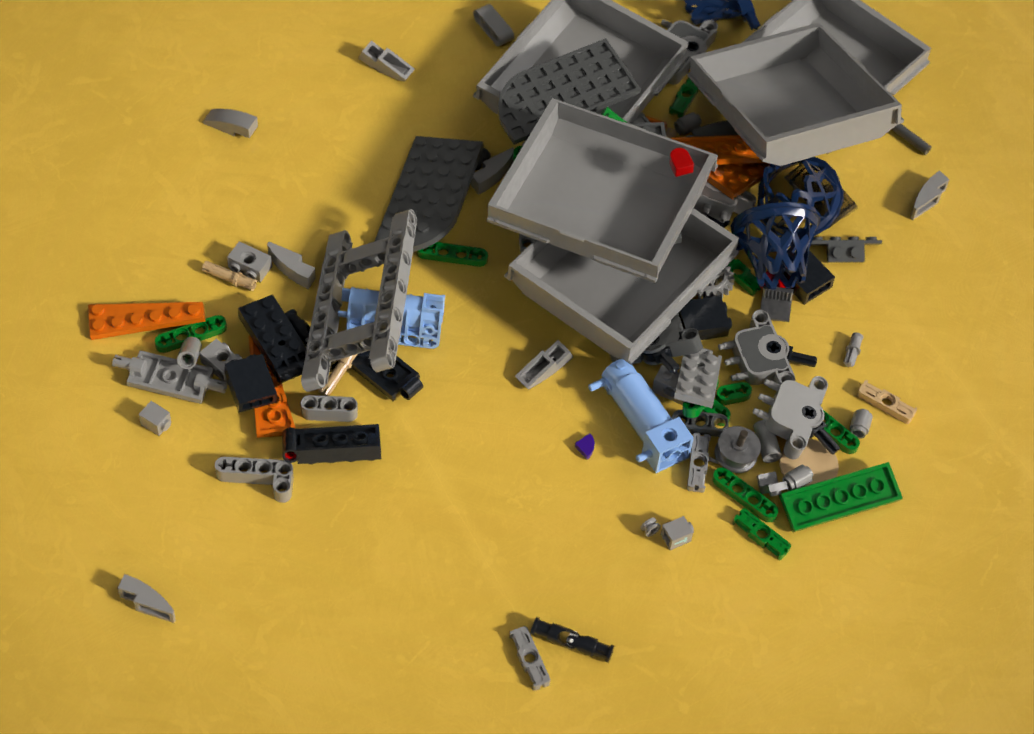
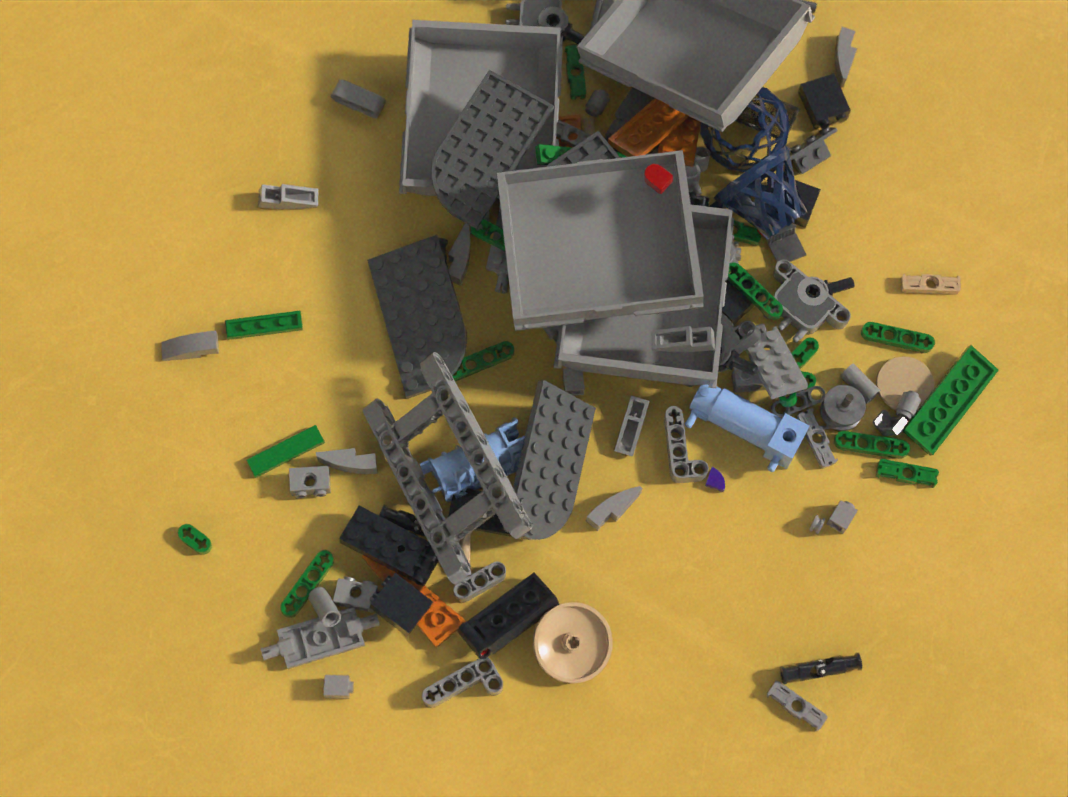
camera: 30 degrees left, 15 degrees up
(124, 319) = (243, 603): orange wing -> none
(132, 253) = (197, 536): none -> green beam
(235, 278) = (301, 505): tan pin -> none
(247, 233) = (285, 451): none -> green tile
(300, 139) = (264, 325): none -> green tile
(370, 493) = (572, 642): none -> tan dish
(452, 347) = (552, 458): none -> dark grey plate
(483, 416) = (613, 507): none -> light grey slope
(518, 307) = (573, 381): none -> light grey brick
(573, 400) = (680, 444): none -> light grey beam
(625, 304) = (683, 339): none -> light grey slope
(720, 318) = (755, 289): none -> green beam
(797, 414) = (873, 346): light grey piece -> none
(853, 349) = (874, 250): light grey axle -> none
(861, 423) = (923, 318): light grey brick -> none
(886, 218) = (824, 101): none -> black brick

